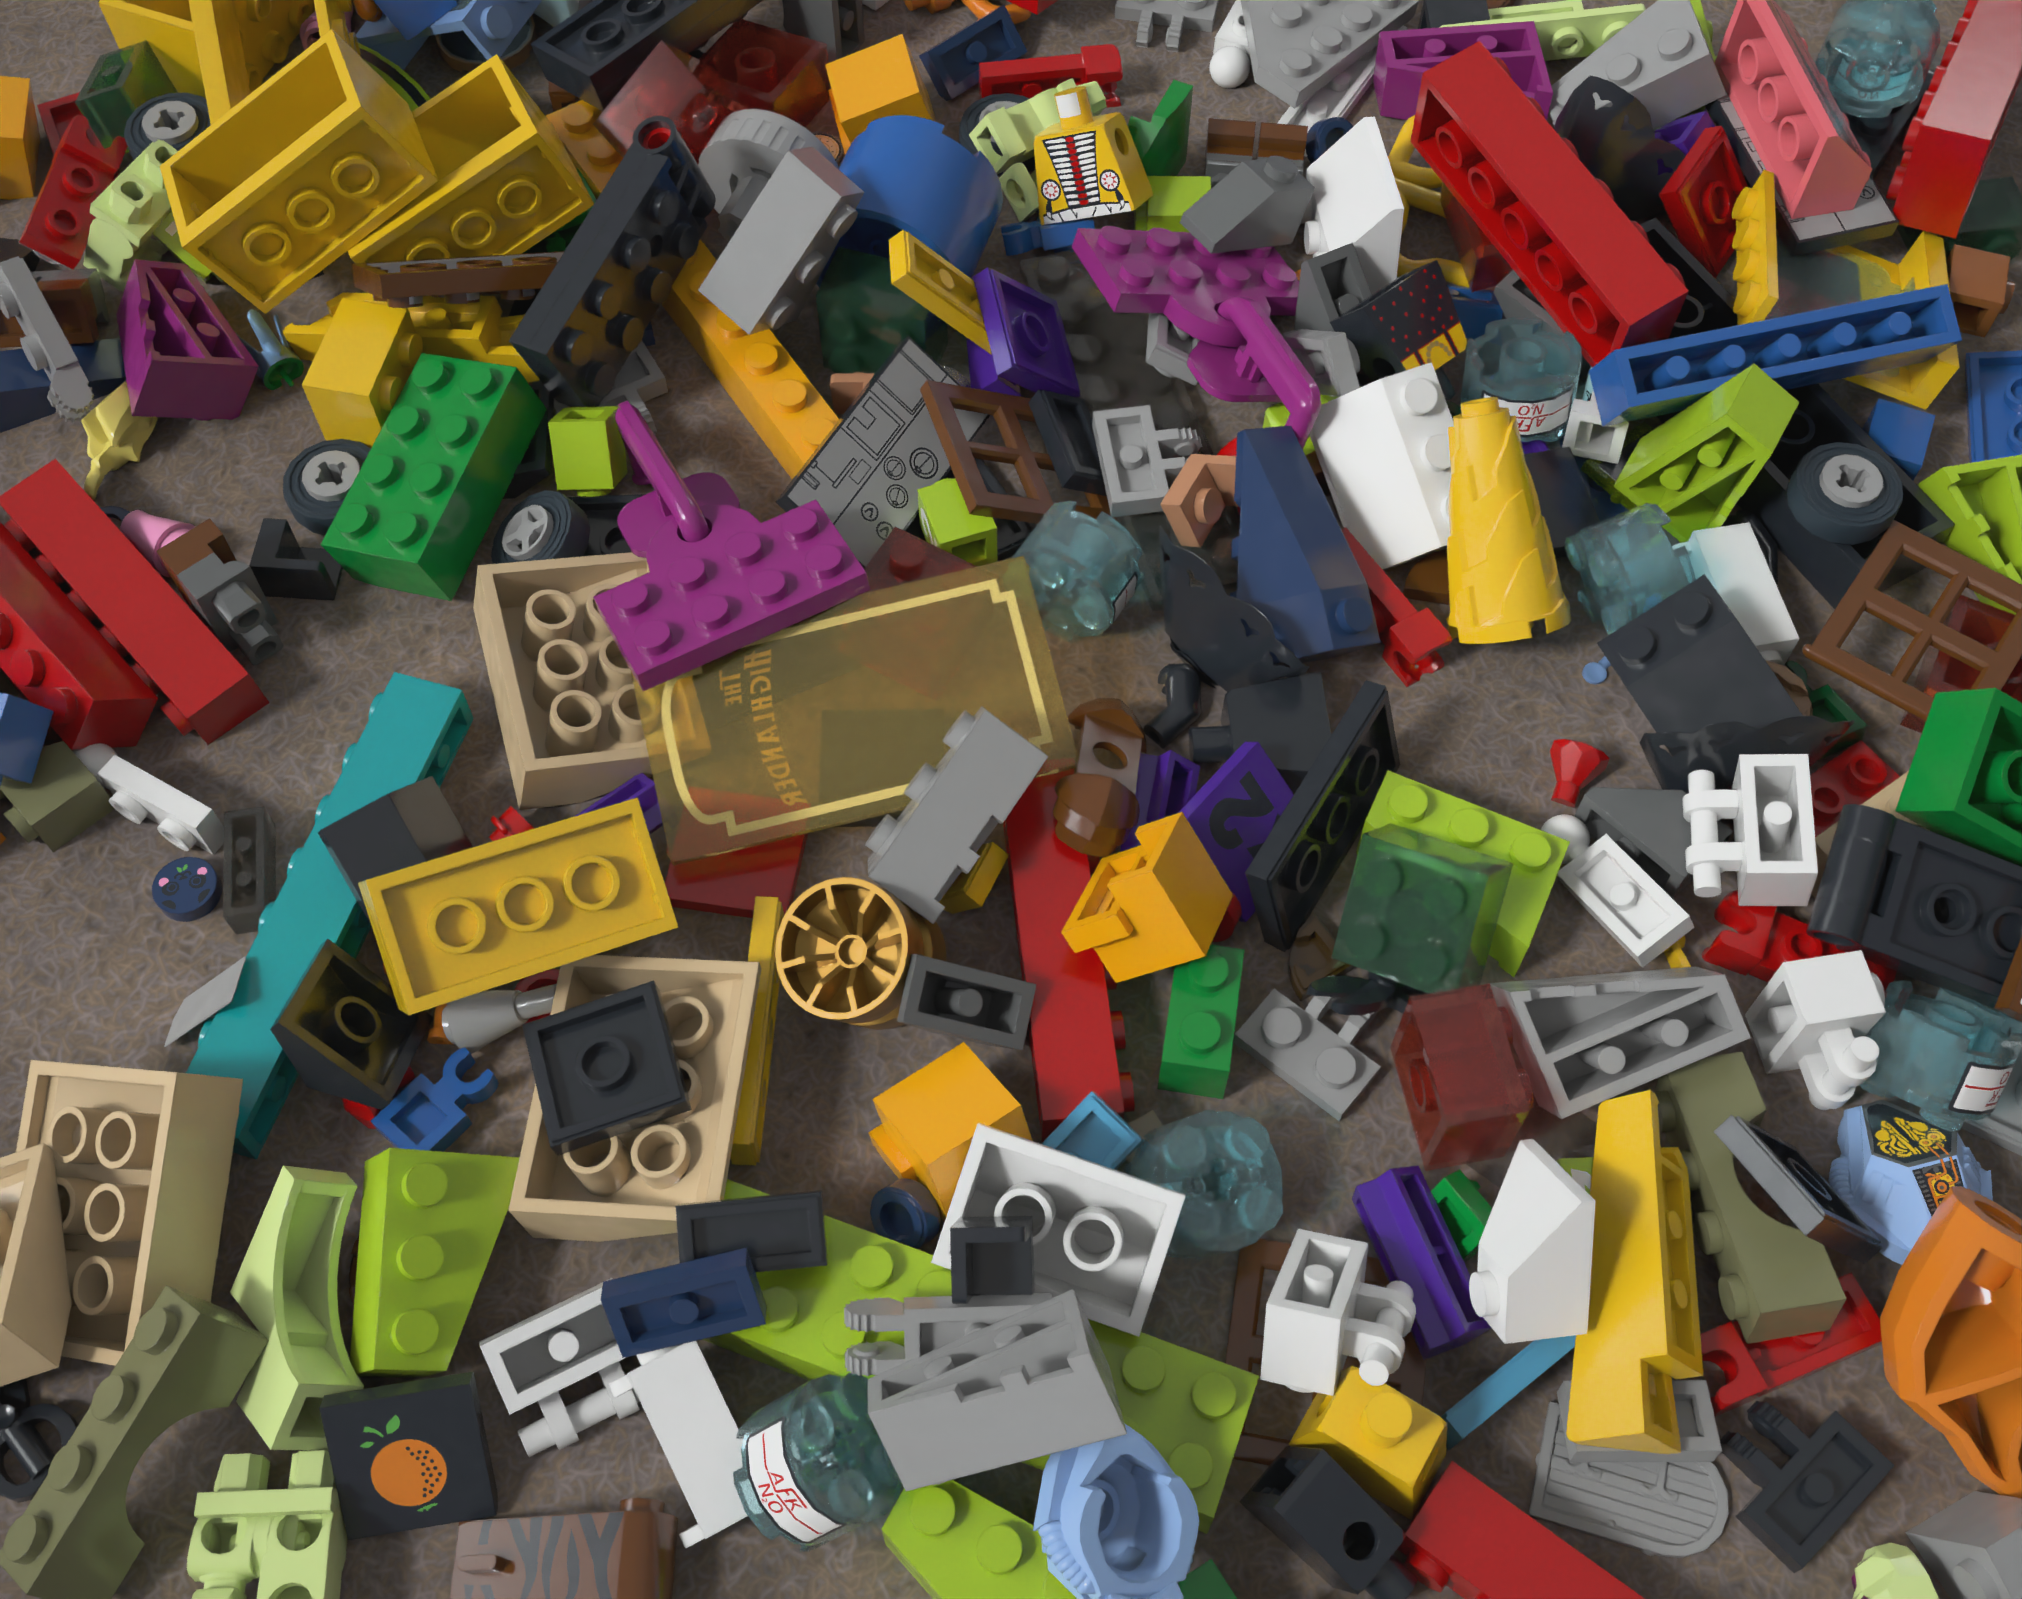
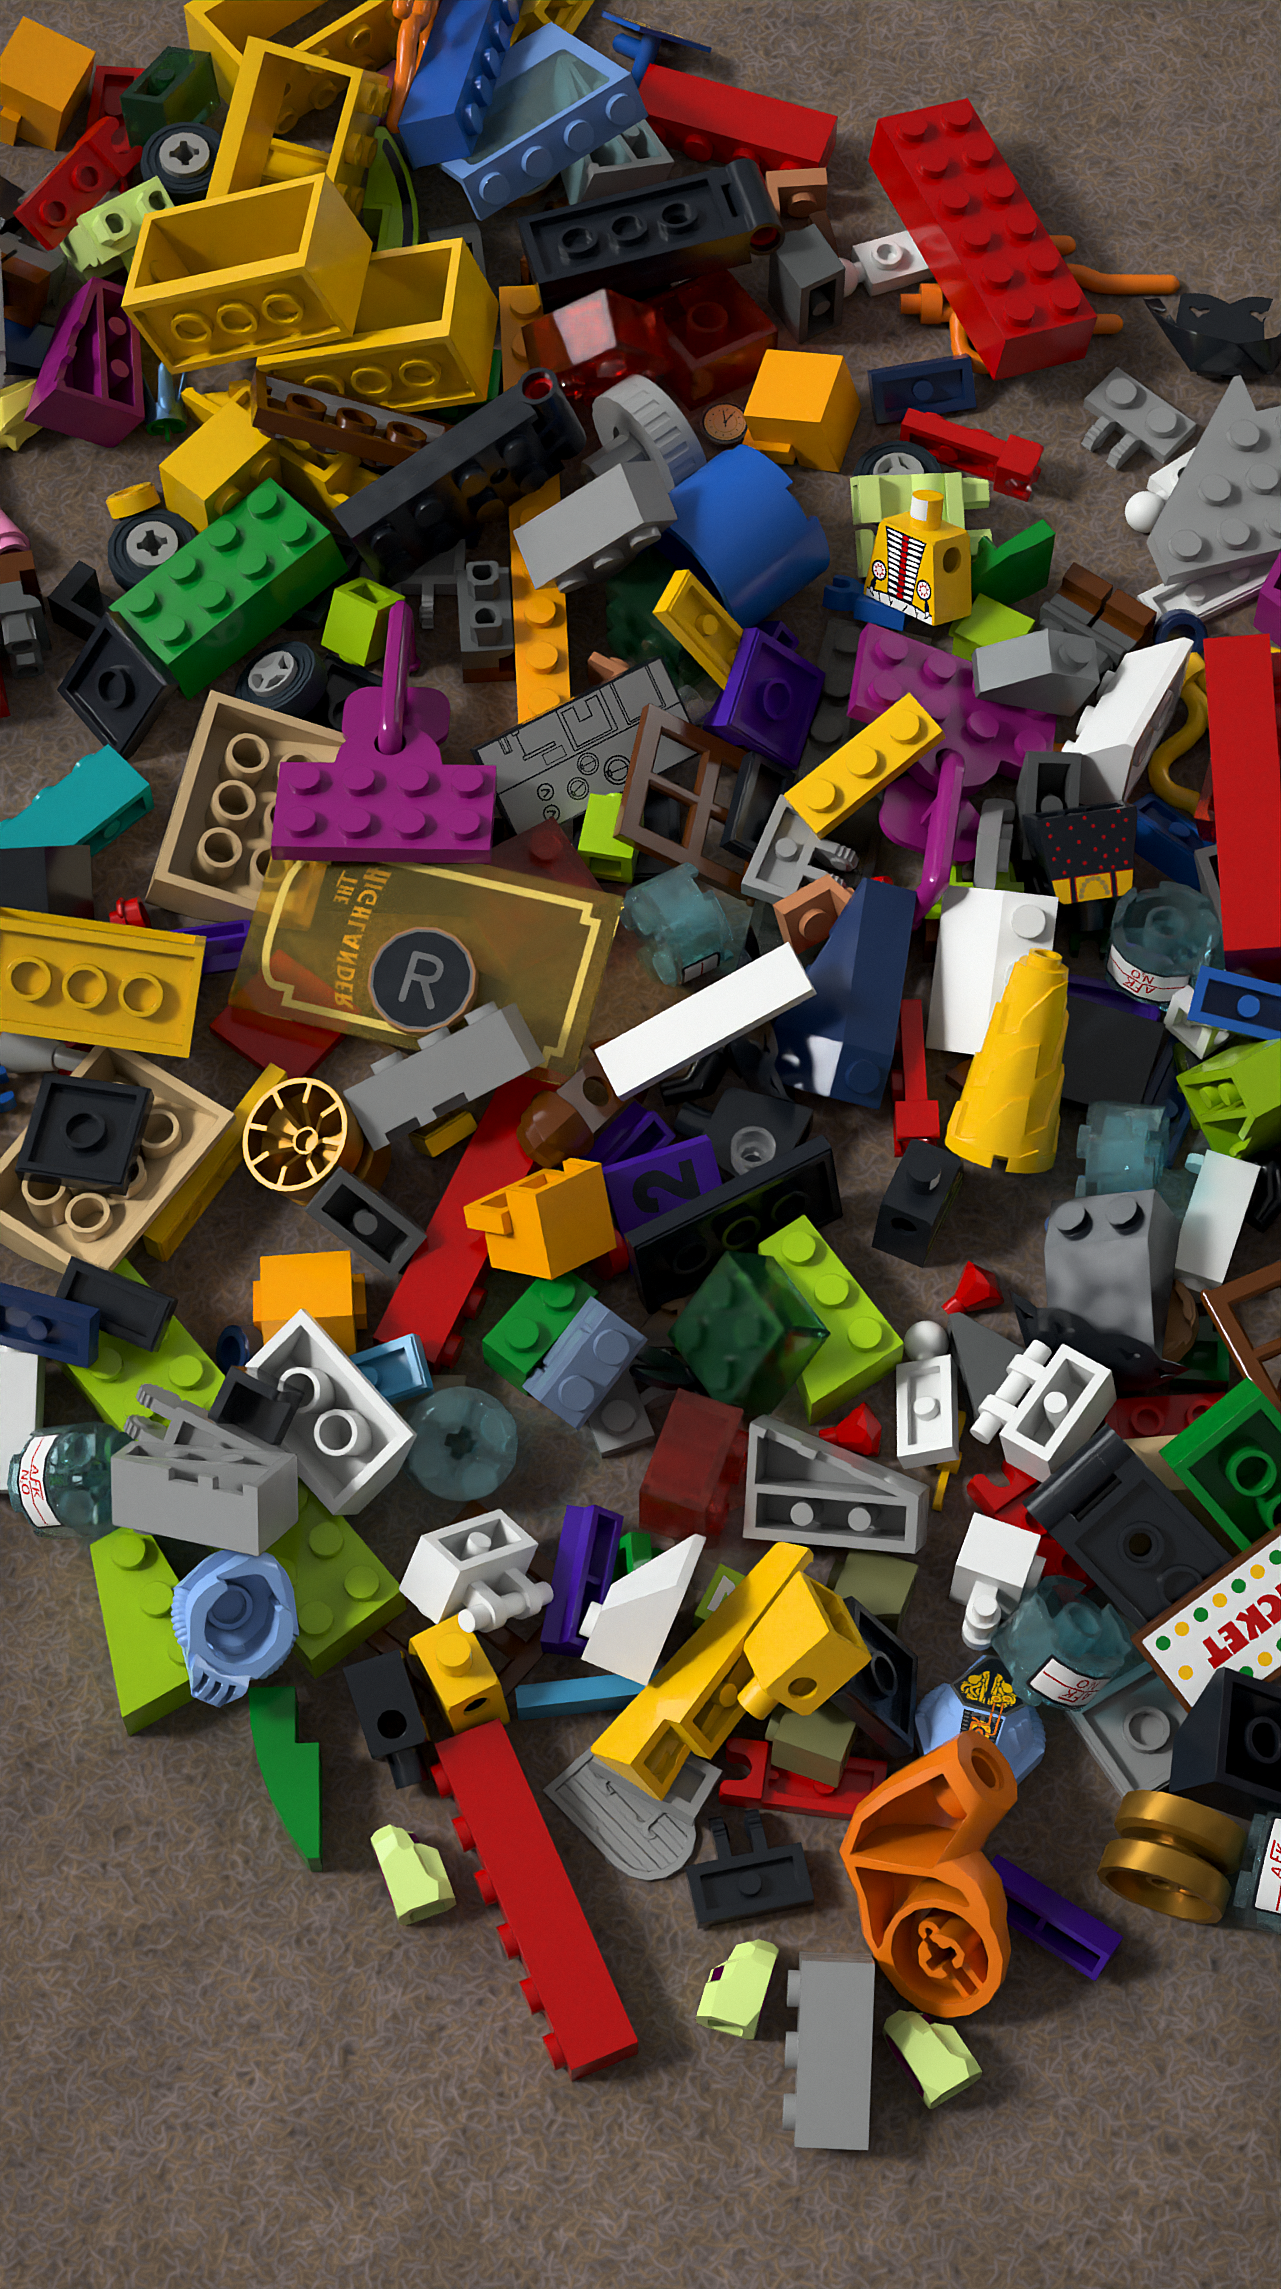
camera: 30 degrees right, 5 degrees up
(286, 448) = (132, 500): none -> yellow tile
(371, 613) = (118, 685): none -> black tile
(708, 398) = (485, 623): none -> dark grey hips
(870, 734) = (423, 981): none -> black tile
(1162, 344) = (864, 766): none -> yellow plate
(1181, 632) = (705, 1021): none -> white tile
(1284, 1026) = (584, 1363): none -> sand blue brick
(1303, 724) = (751, 1141): none -> clear hose
(1471, 689) = (922, 1194): none -> black torso
(1568, 955) = (857, 1432): none -> red rock
(1740, 1201) = (801, 1650): none -> yellow torso

